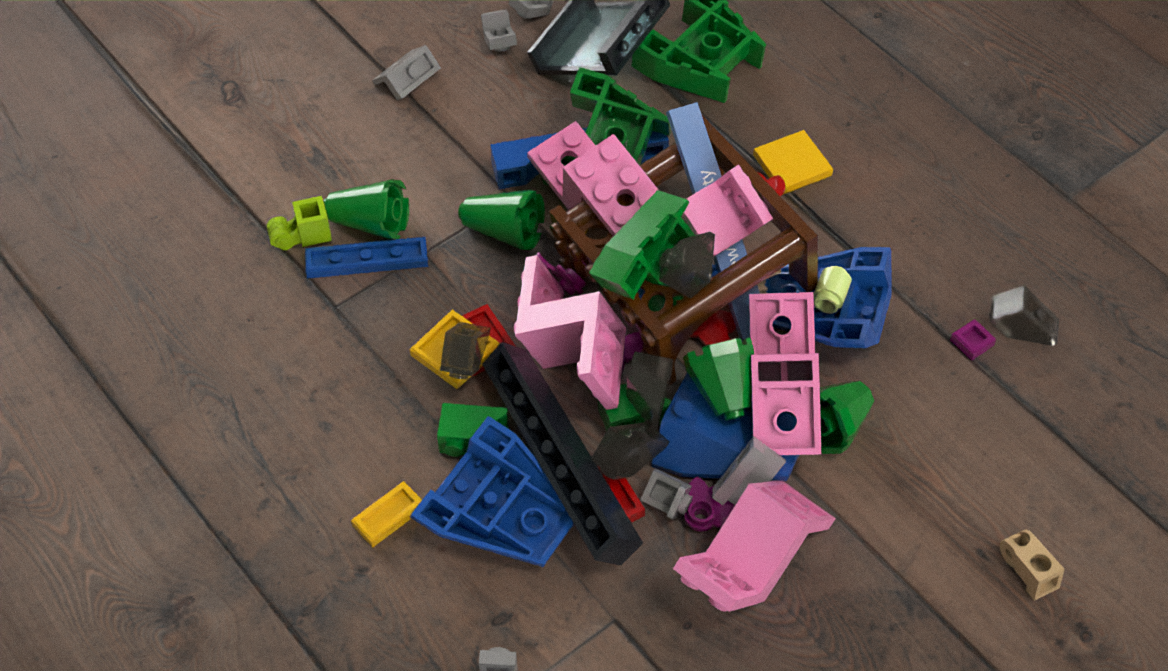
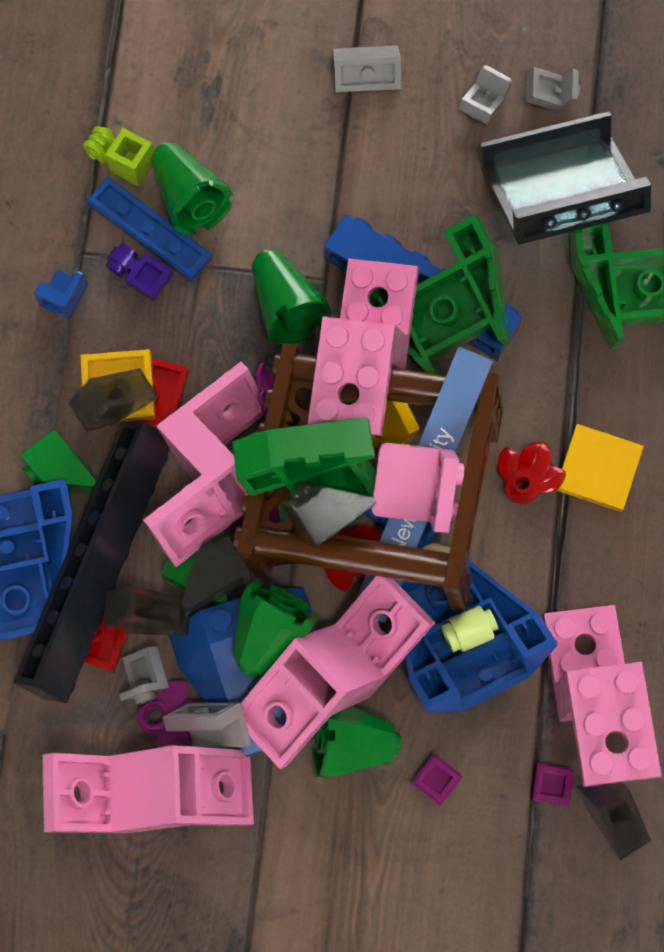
camera: 45 degrees right, 20 degrees up
(351, 335) = (62, 293): none -> blue panel
(396, 279) = (144, 276): none -> dark purple plate
(908, 396) = (437, 780): none -> magenta tile
(953, 247) = (602, 697): none -> bright pink bracket

